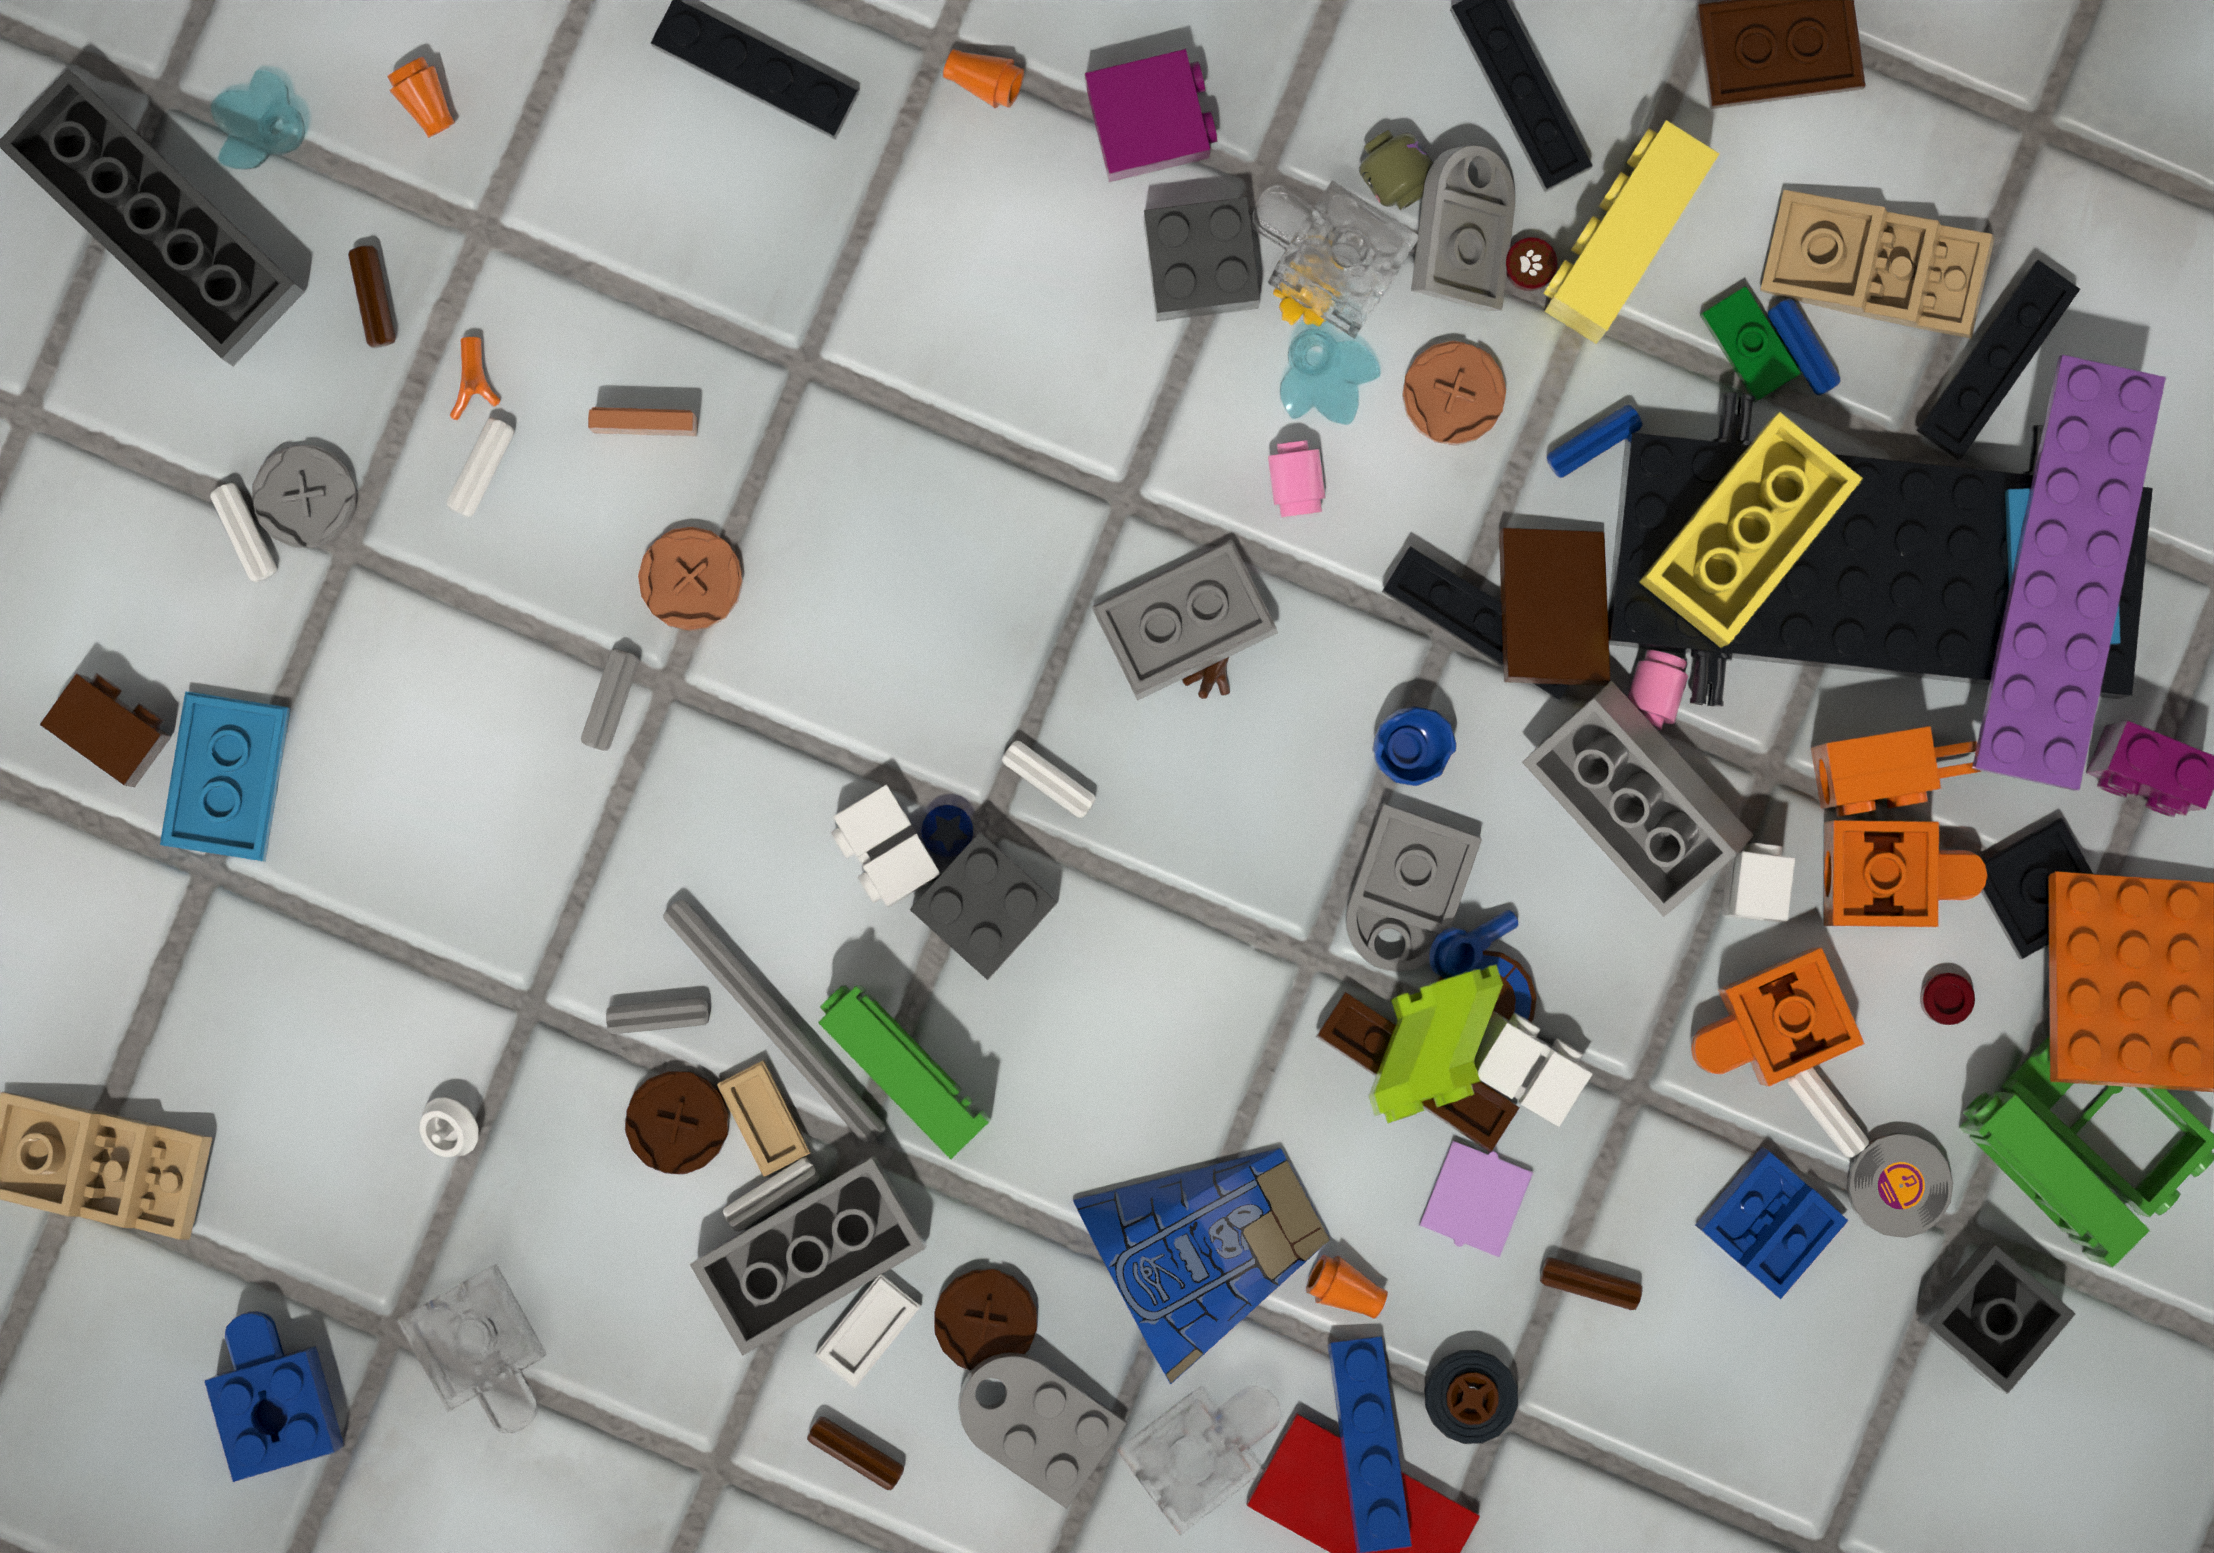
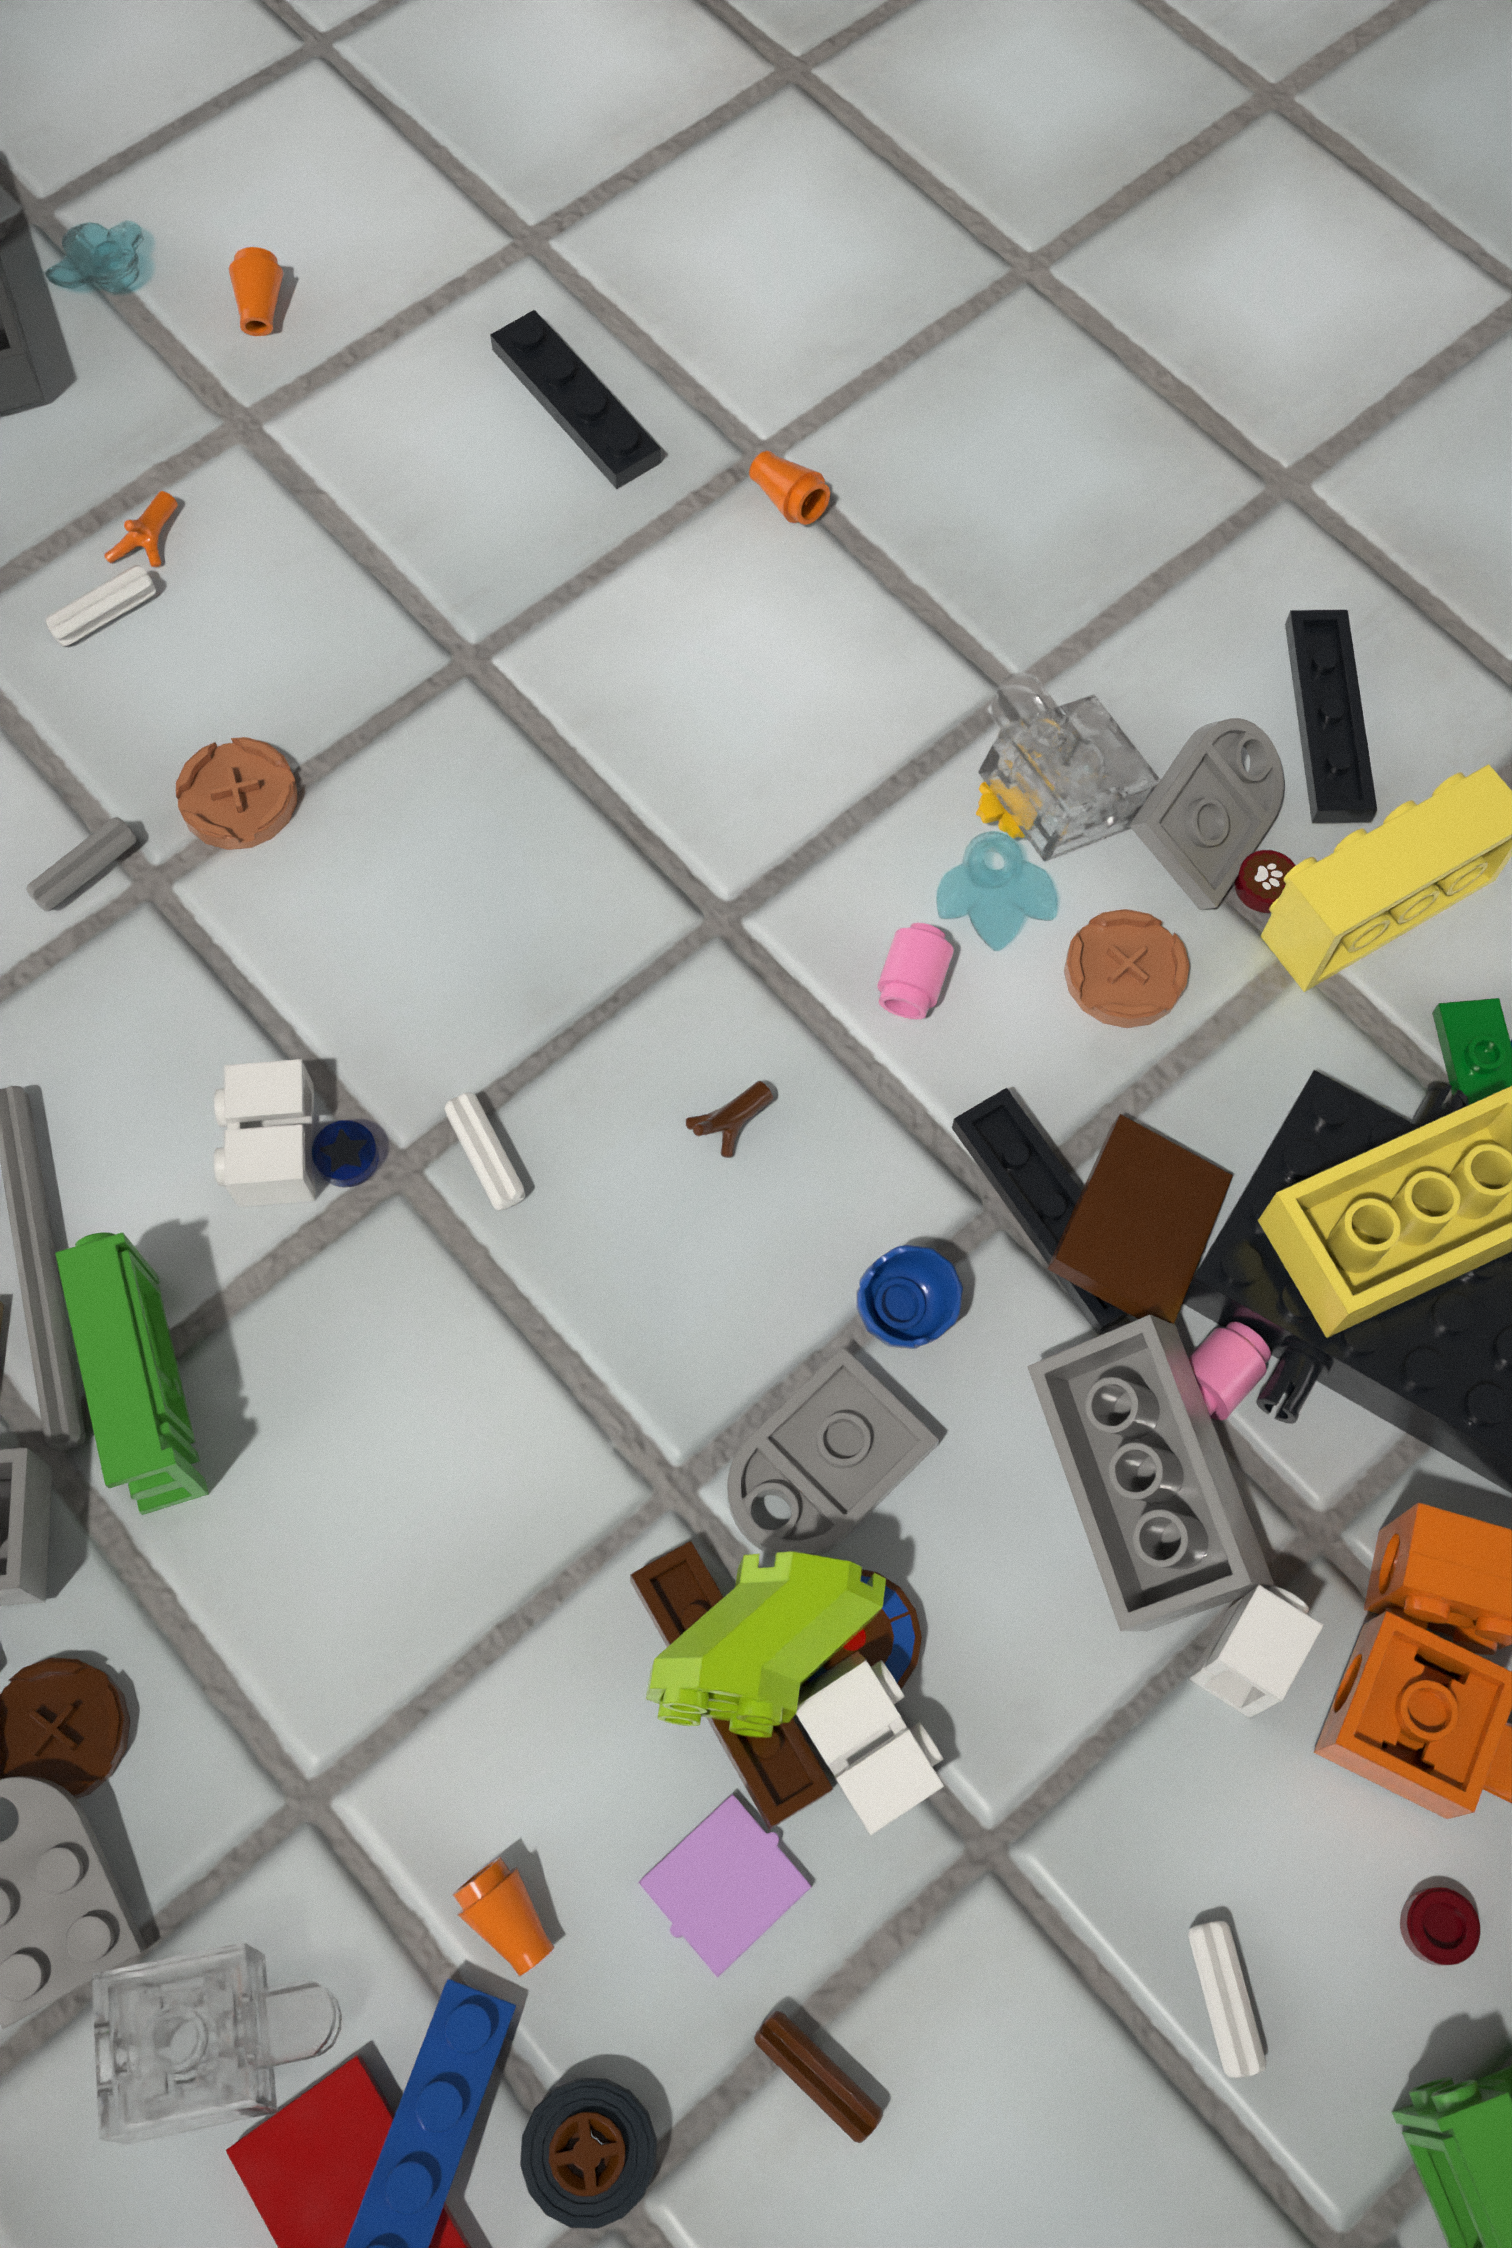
camera: 25 degrees right, 20 degrees down
(371, 296) = (101, 427): reddish brown axle -> none
(642, 421) = (278, 628): nougat tile -> none
(983, 906) = (332, 1243): dark grey brick -> none
(1150, 114) = (934, 574): magenta brick -> none
(1184, 620) = (720, 1055): light grey tile -> none
(1201, 259) = (919, 721): dark grey brick -> none
(1202, 1248) = (353, 1778): wedge -> none
(1395, 169) = (1162, 725): olive head -> none
(1459, 952) = (851, 1542): blue plate -> none
(1594, 441) = (1256, 1080): blue axle -> none
(1771, 1222) = (1091, 2117): blue slope -> none
(1779, 1021) = (1214, 1841): orange brick -> none
(1900, 1185) = (1284, 2153): light grey tile -> none

